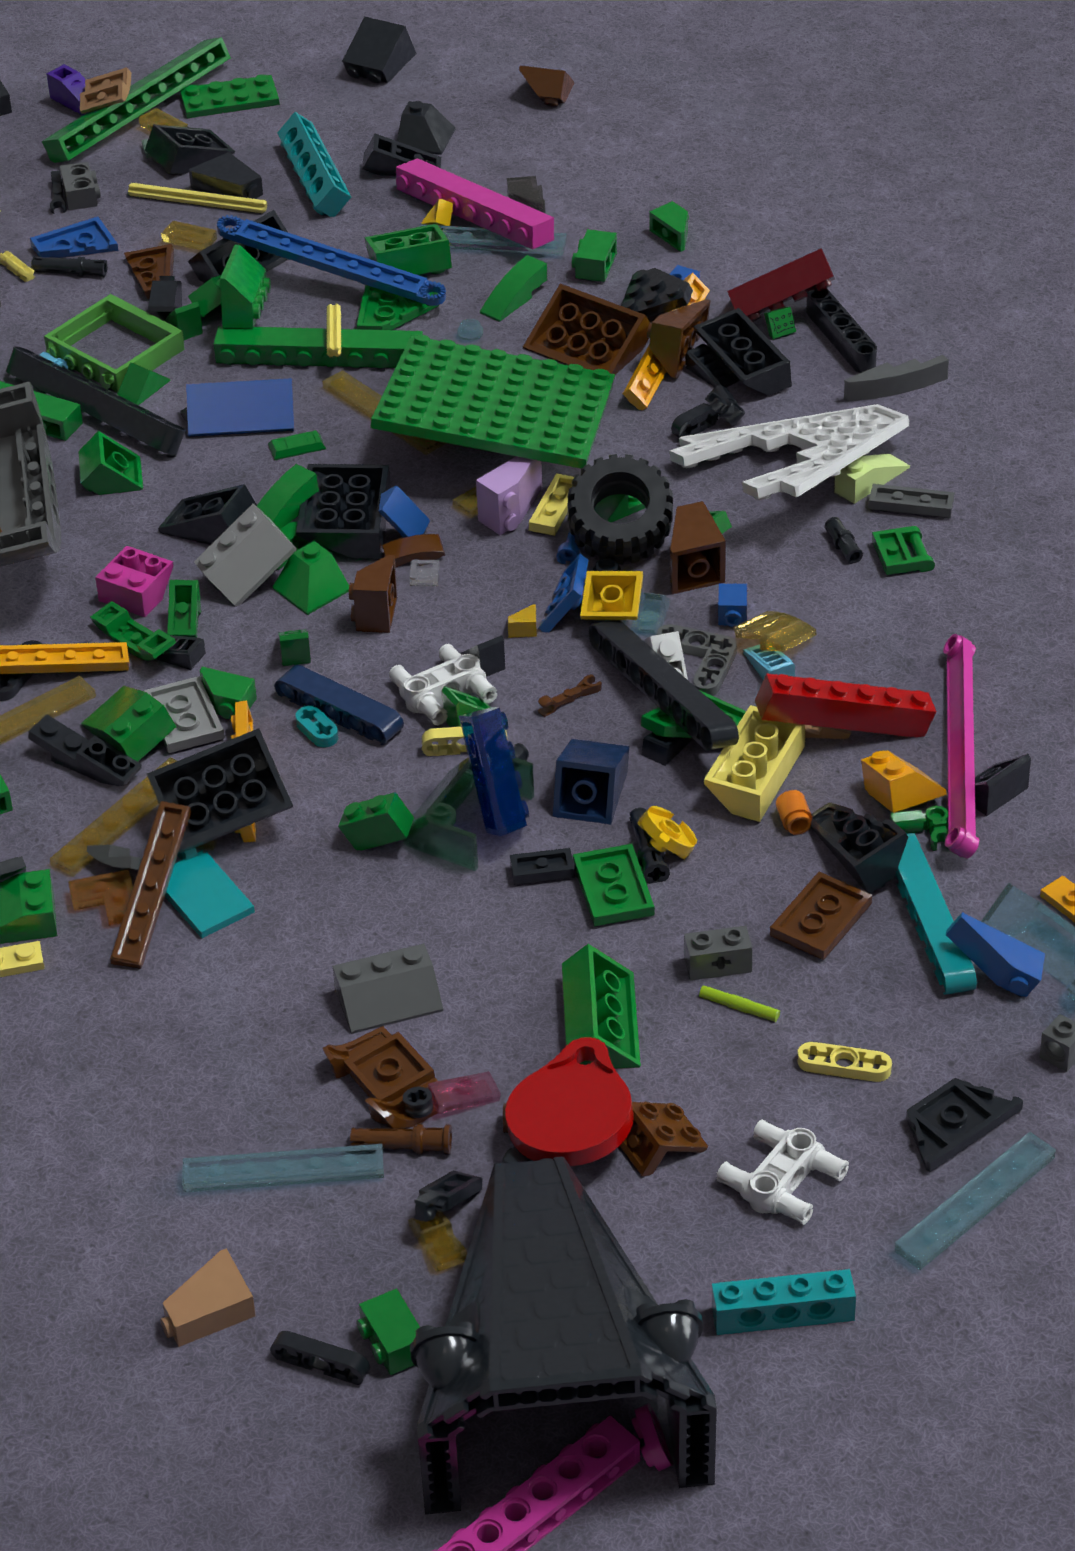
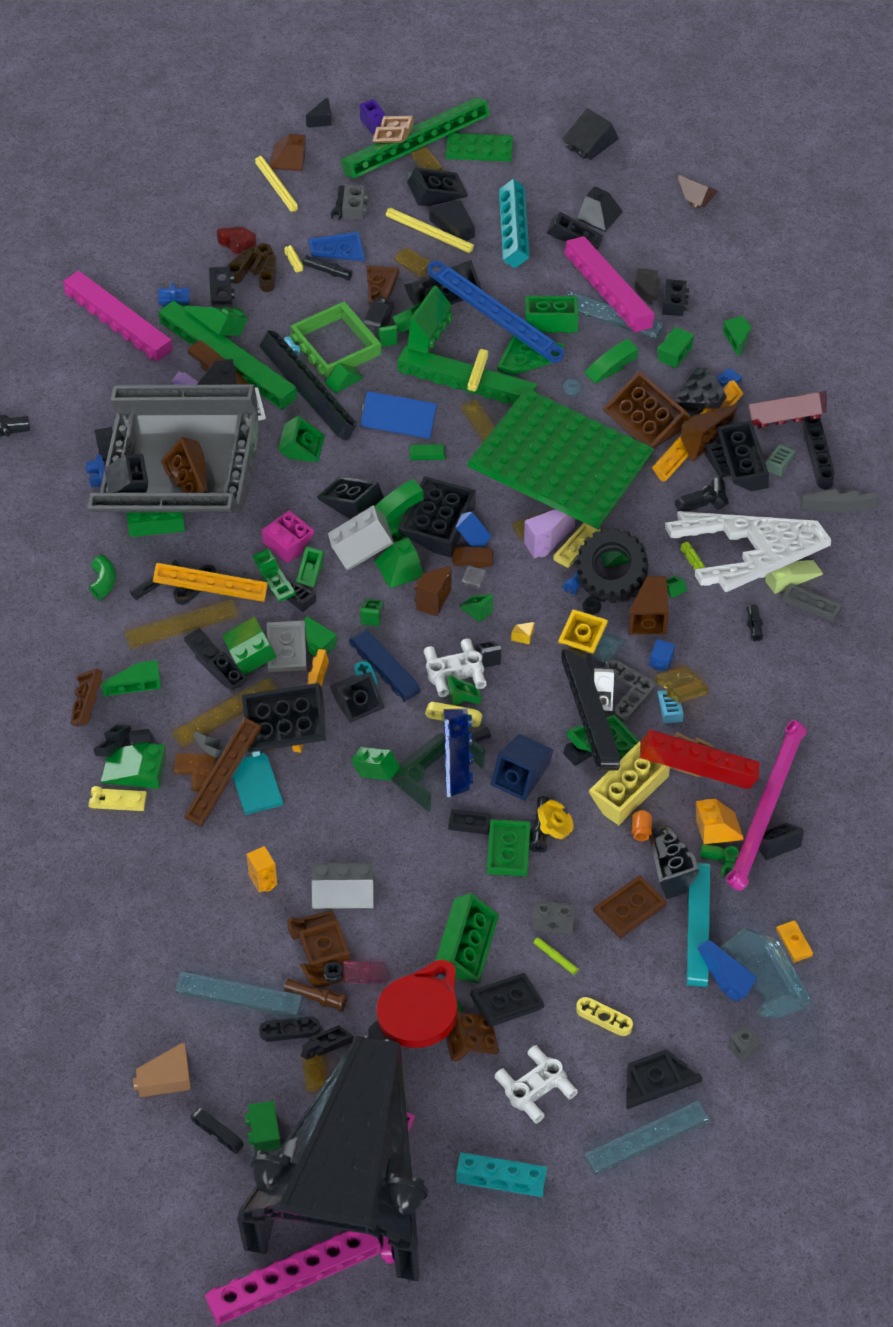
camera: 15 degrees right, 10 degrees up
(258, 993) = (262, 869): none -> light orange brick
(314, 749) = (357, 696): none -> black slope
(383, 1184) = (273, 1024): none -> black beam
(439, 214) = (583, 287): yellow slope -> none
(447, 605) = (478, 606): none -> green slope
(567, 593) = (560, 617): blue wing -> none
(570, 203) = (674, 297): none -> black brick
(582, 689) = (517, 700): reddish brown piece -> none
(693, 1074) = (507, 999): none -> black tile
(722, 485) = (692, 556): none -> lime axle
(780, 322) = (779, 434): green tile -> none
(794, 350) = (776, 468): none -> sand green slope
(894, 552) = (784, 641): green plate -> none

